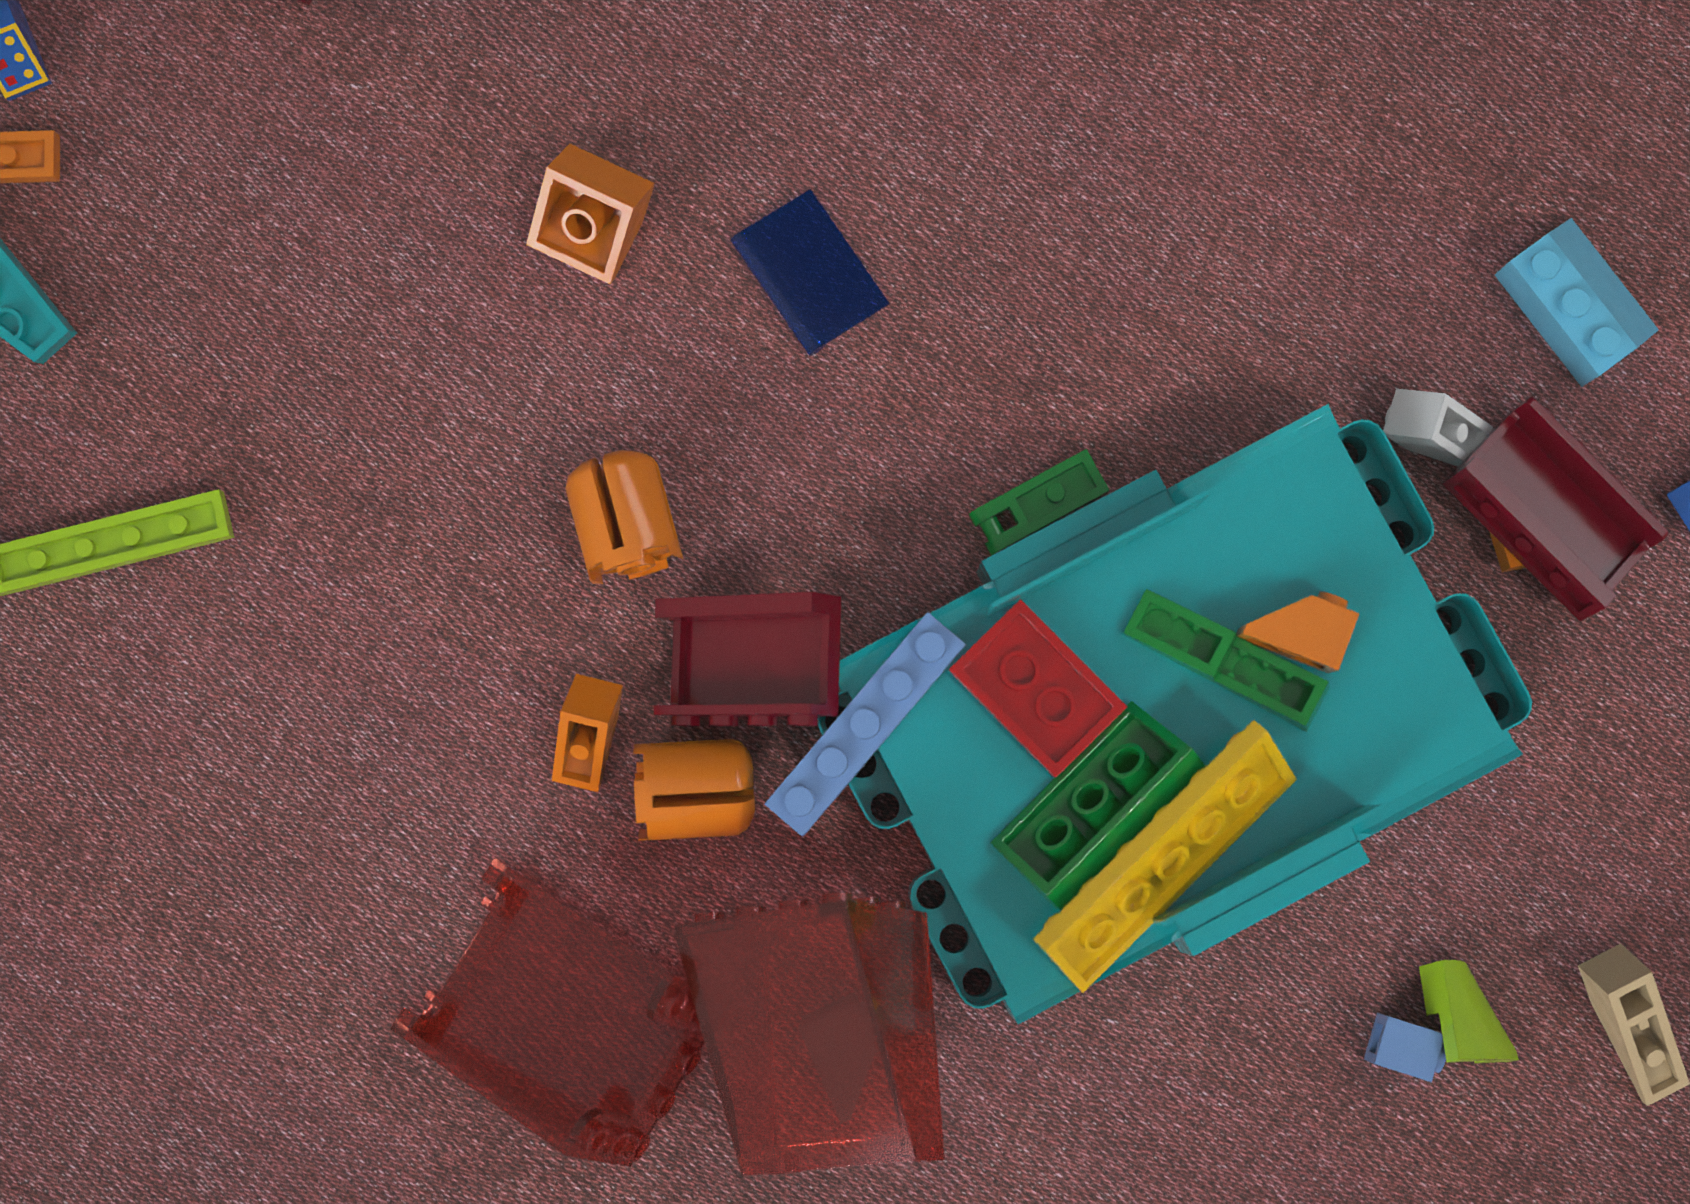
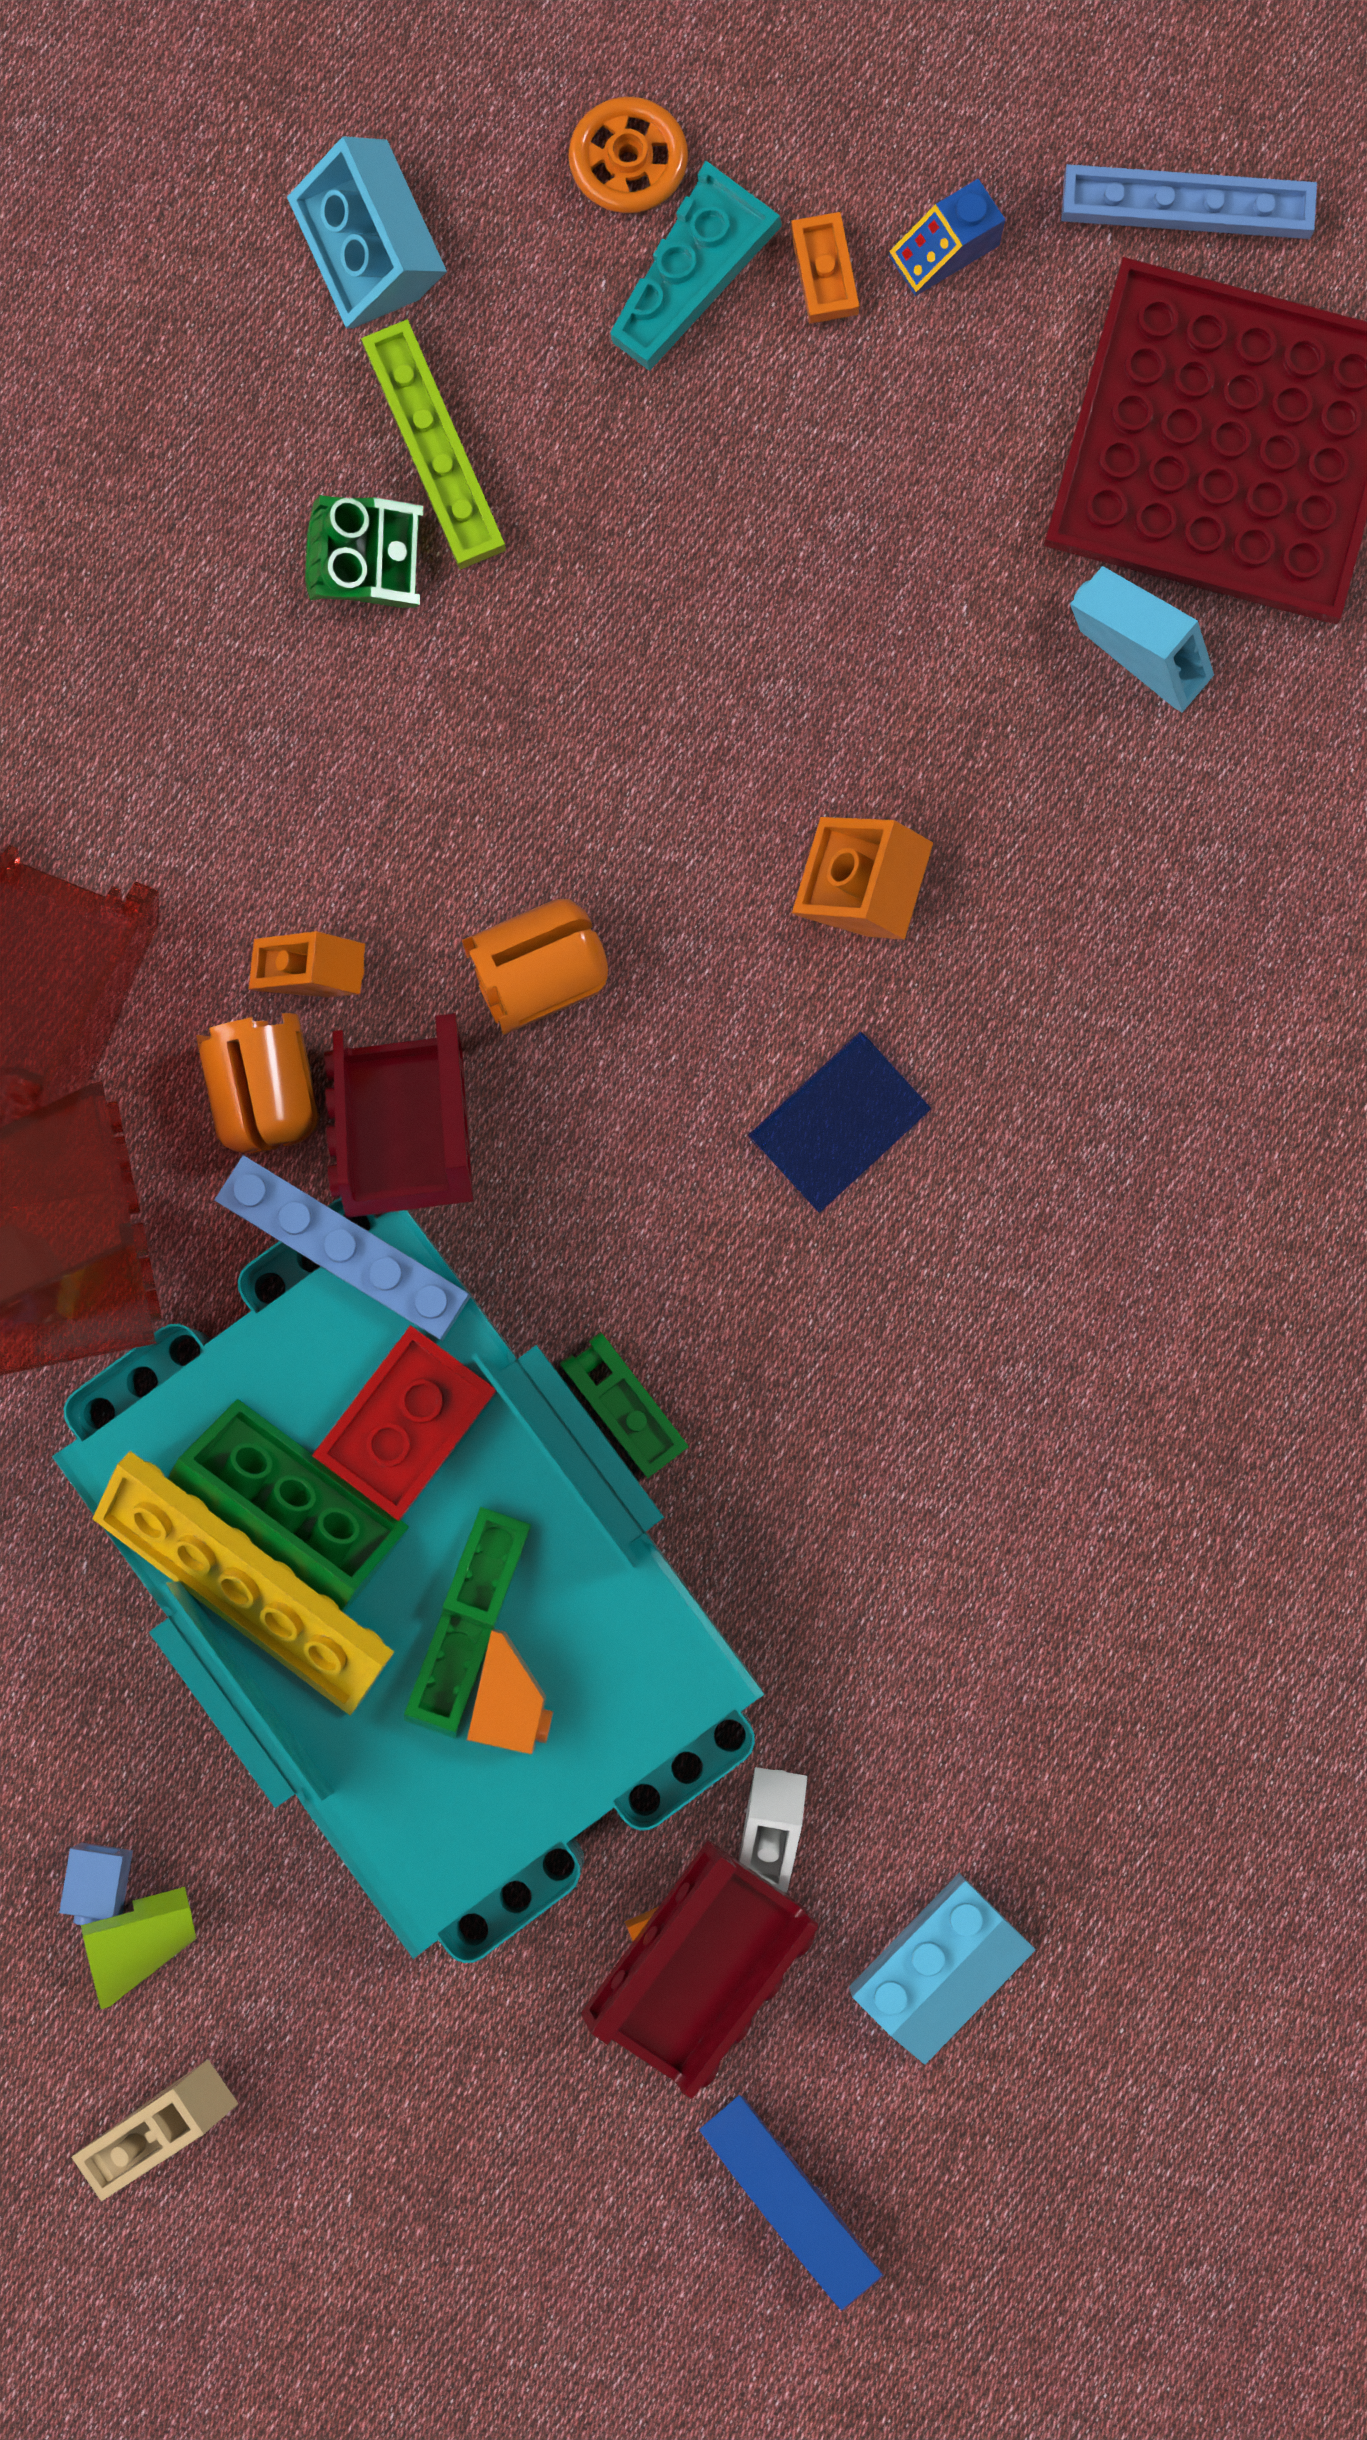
camera: 80 degrees right, 0 degrees up
(200, 623) = (363, 551): none -> green slope

